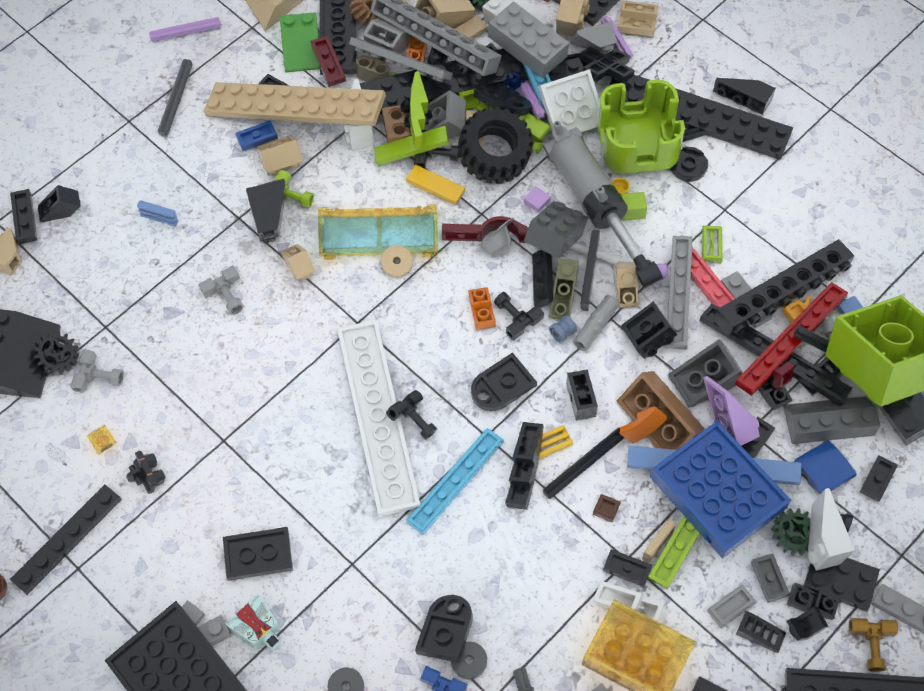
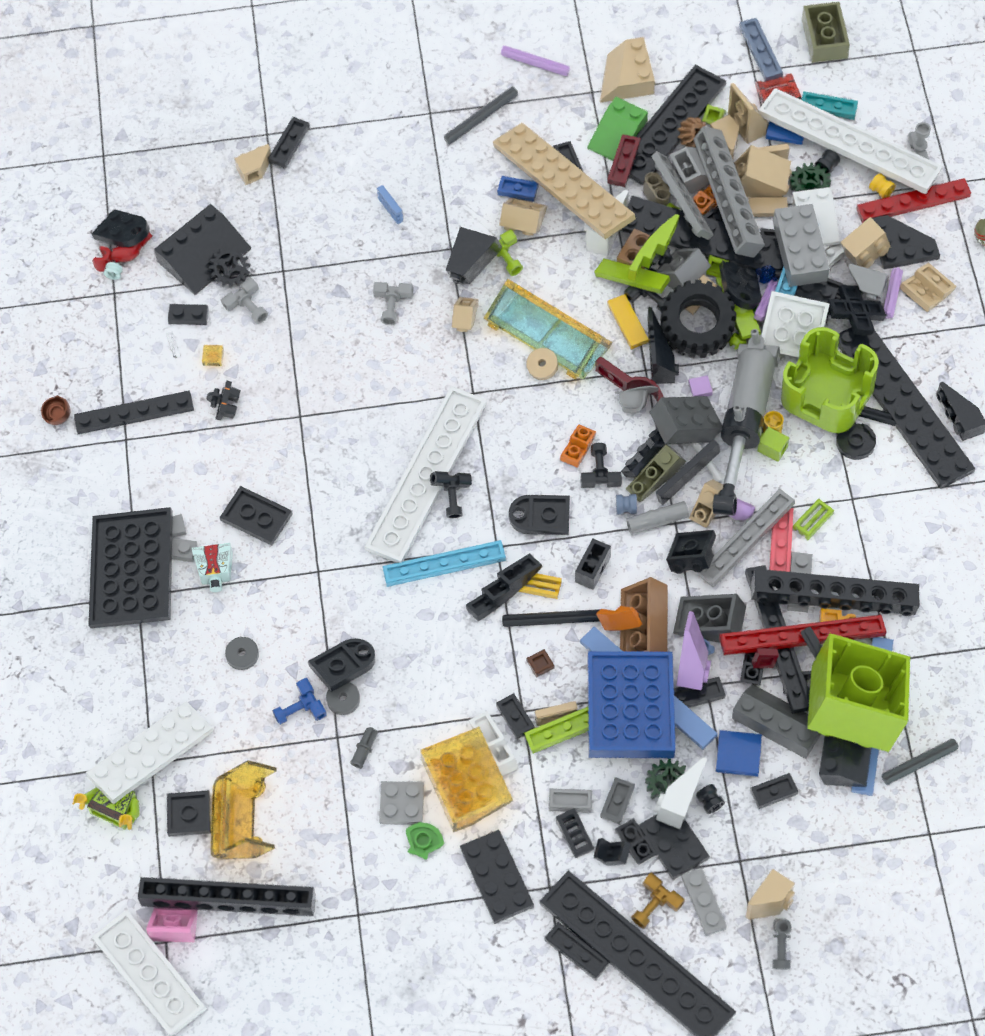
camera: 40 degrees right, 0 degrees up
(48, 419) = (188, 314): none -> black plate
(59, 204) = (322, 149): black slope -> none
(486, 194) = (661, 356): none -> black wedge

